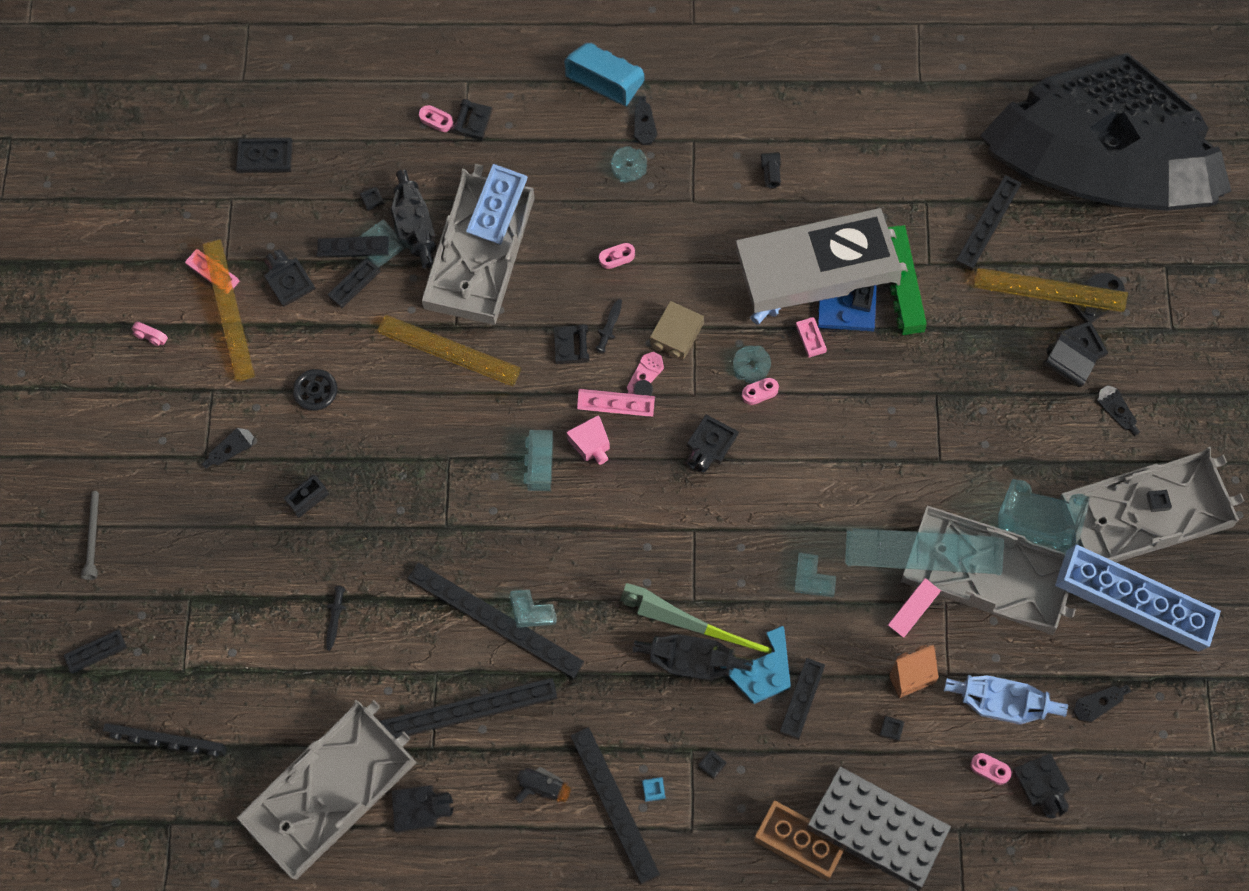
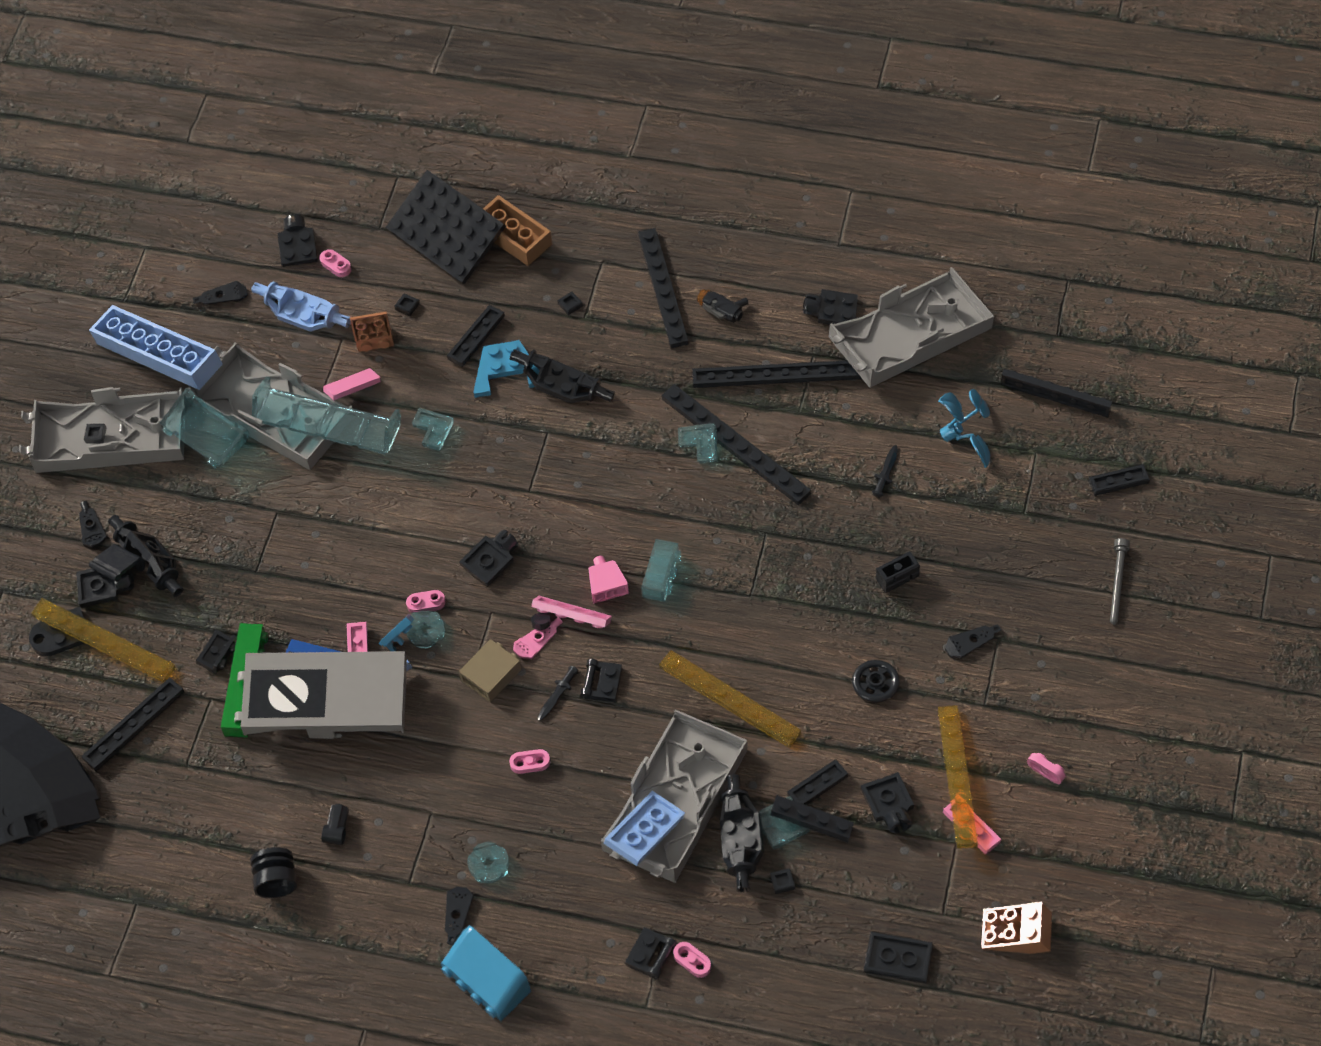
camera: 165 degrees left, 10 degrees down
(165, 191) = (1017, 928): none -> nougat slope
(265, 668) = (954, 430): none -> dark azure plant
(653, 789) = (626, 293): dark azure tile -> none
(658, 609) = (585, 420): sand green plate -> none
(775, 346) = (404, 626): none -> dark azure plate
(808, 111) = (273, 872): none -> black wheel
(938, 301) = (216, 651): none -> black bracket
(1046, 383) = (162, 564): none -> black plate

